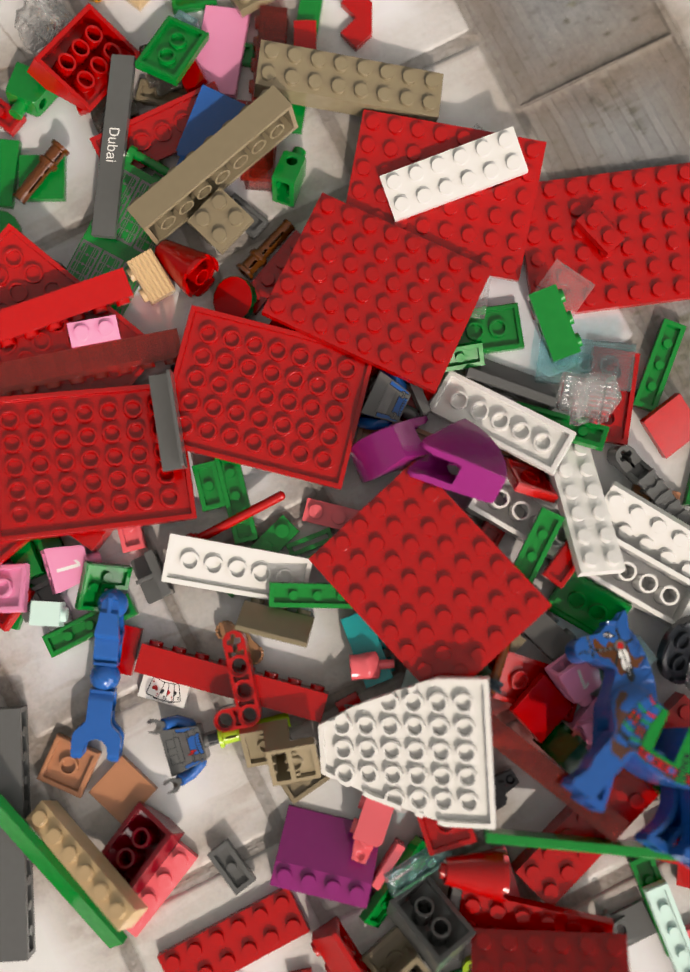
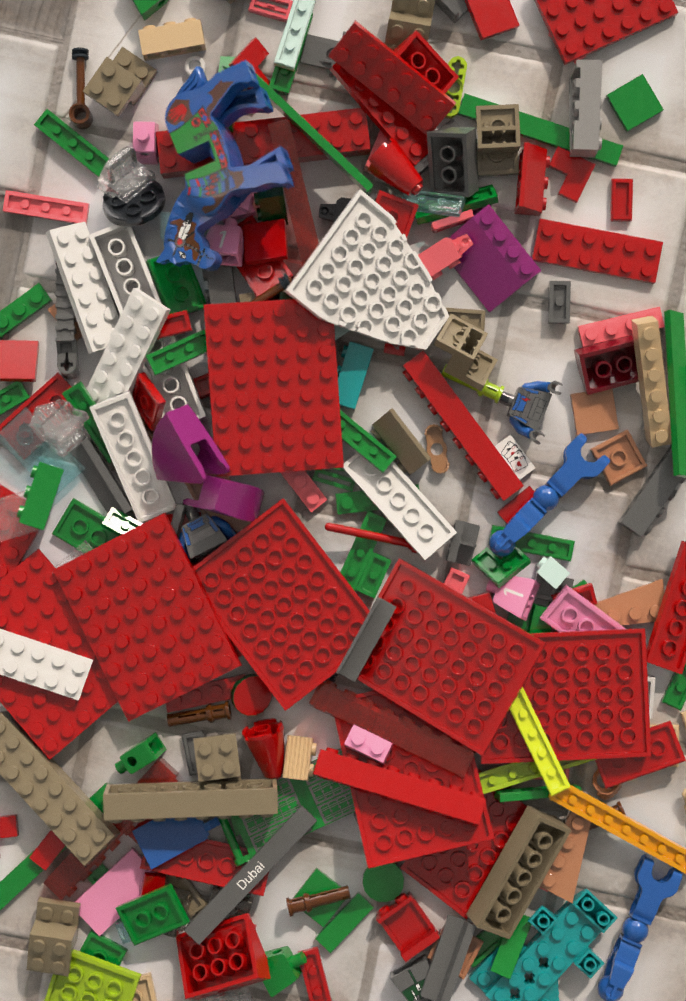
camera: 140 degrees left, 5 degrees up
(237, 677) = (455, 424): red beam -> none
(368, 665) = (360, 362): coral piece -> none

